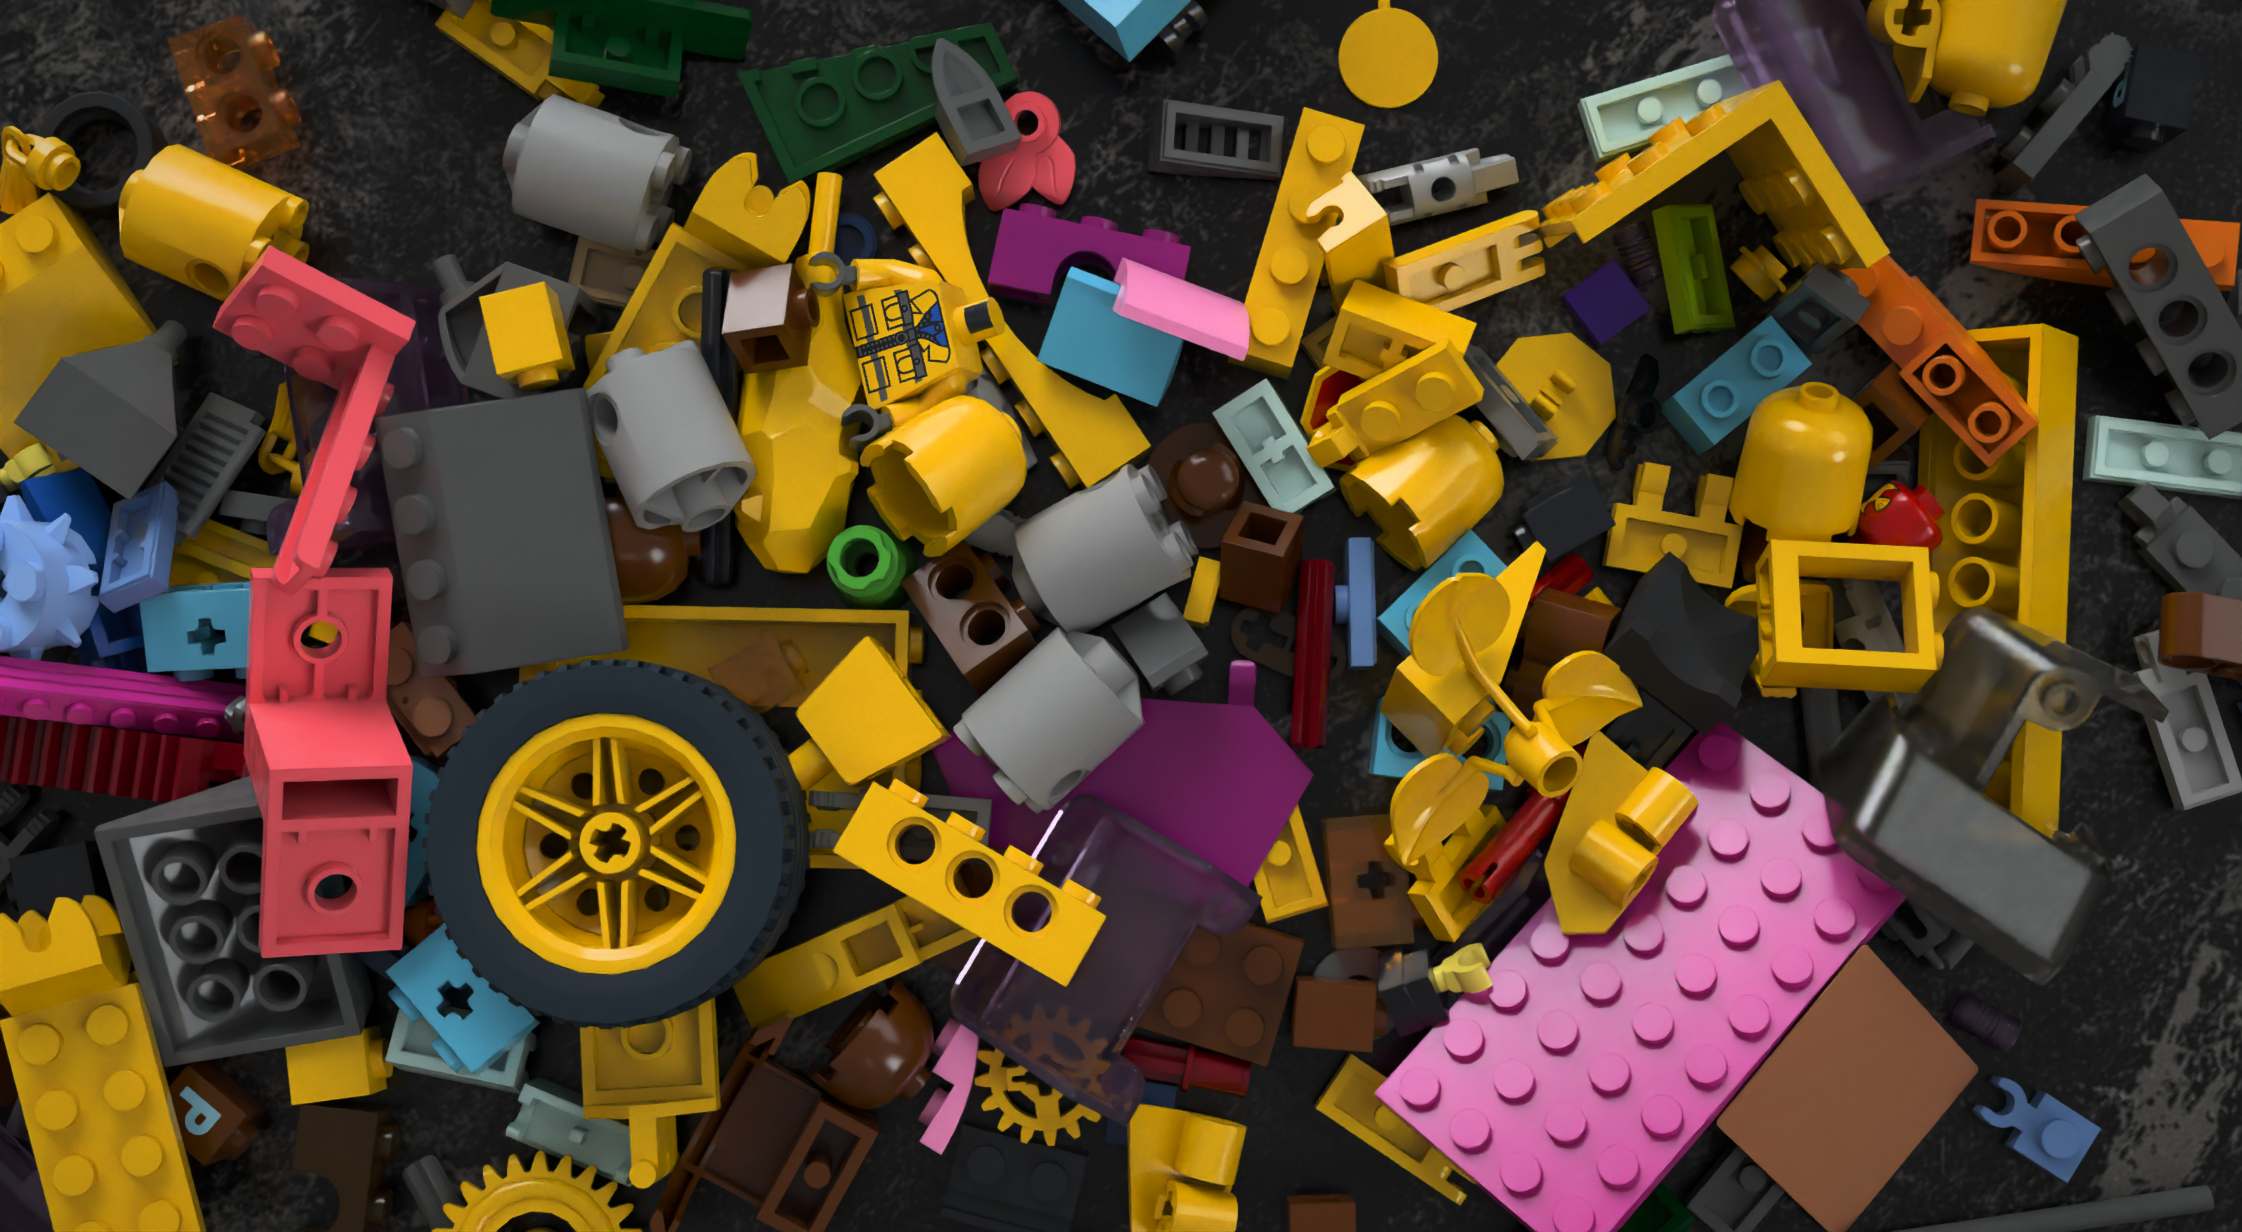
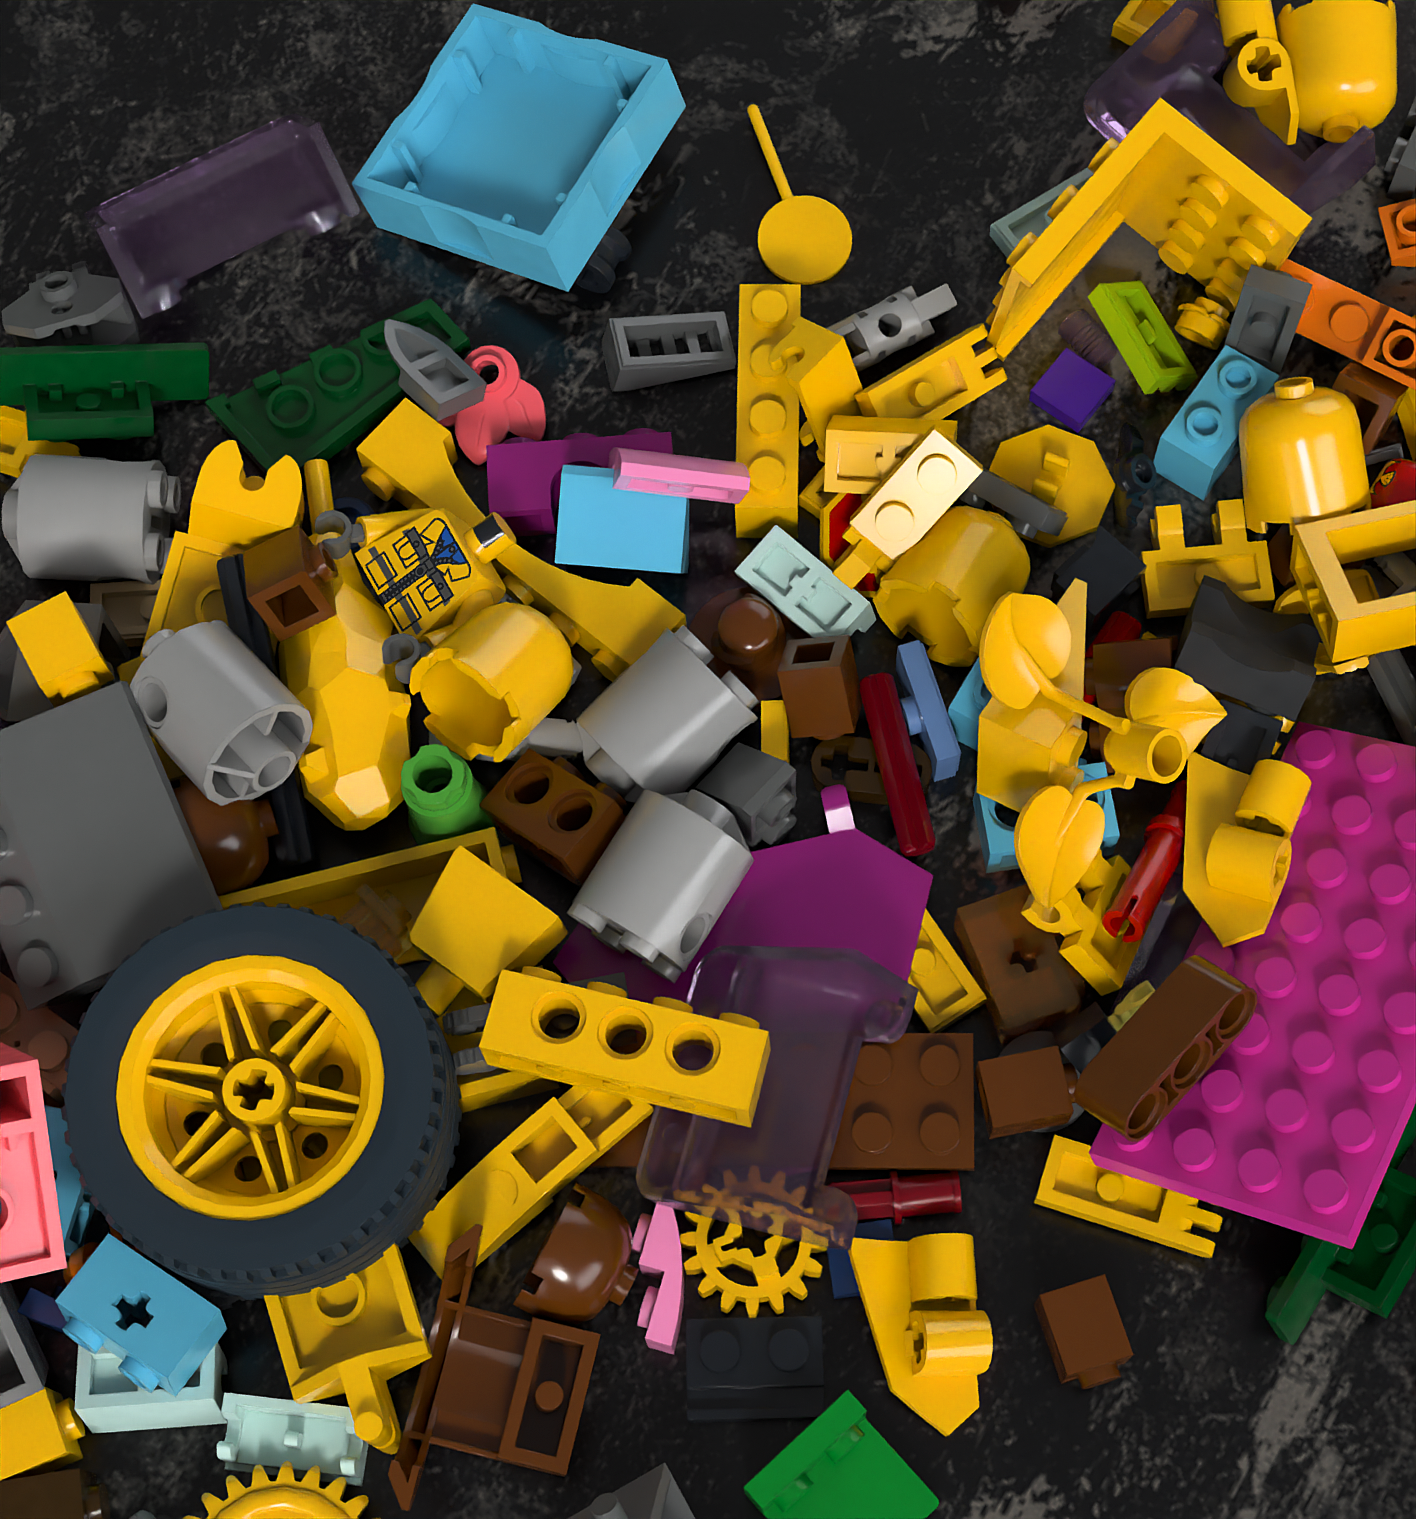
camera: 10 degrees left, 15 degrees down
(1474, 1026) = (1165, 1048): none -> reddish brown beam

